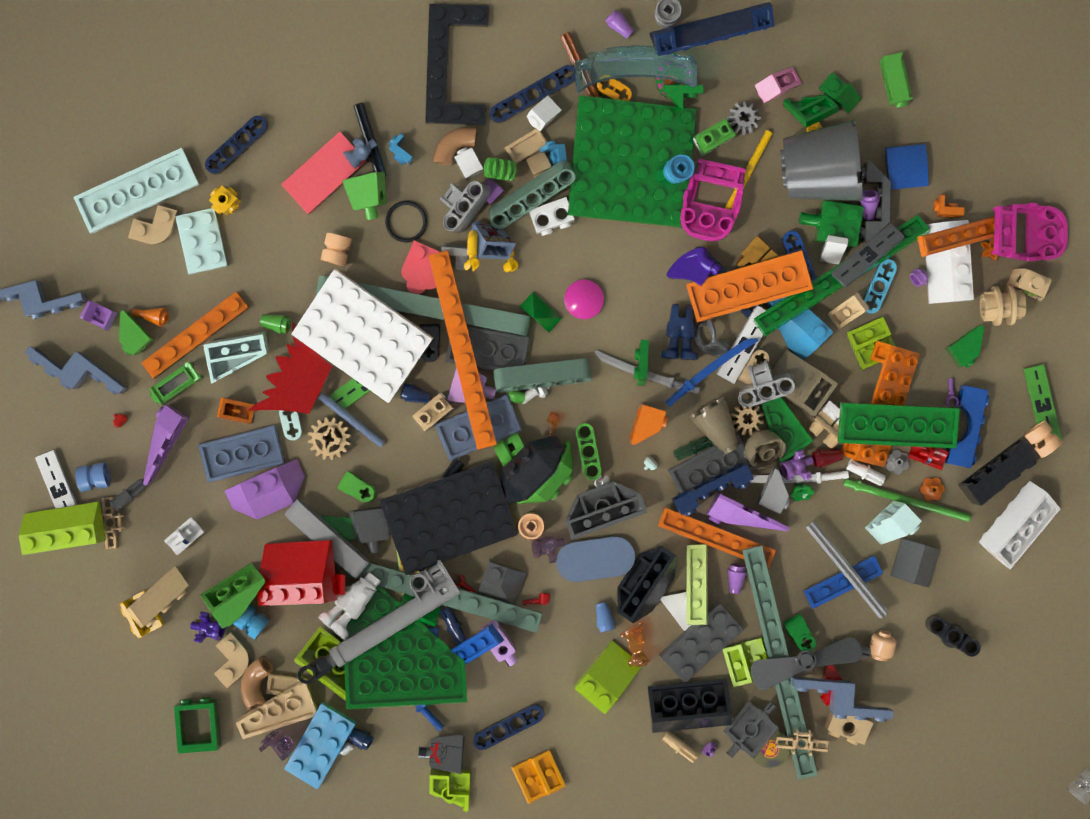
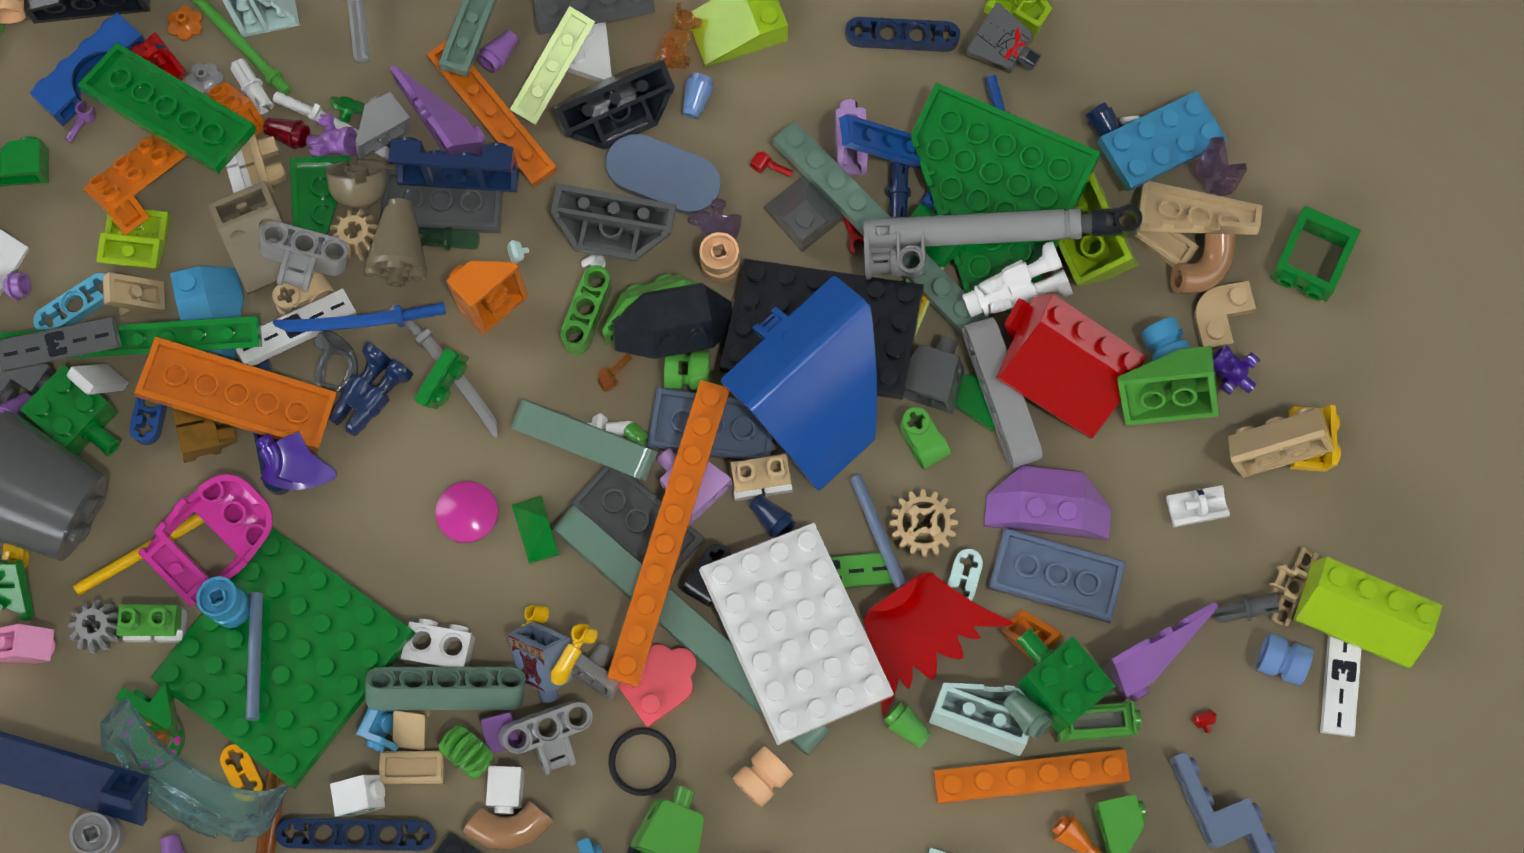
camera: 145 degrees left, 15 degrees down
(202, 390) = (1063, 679): none -> green brick
(210, 361) = (1028, 715): none -> sand green cone
(433, 480) = (814, 380): none -> blue panel
(644, 151) = (254, 656): none -> sand blue bar

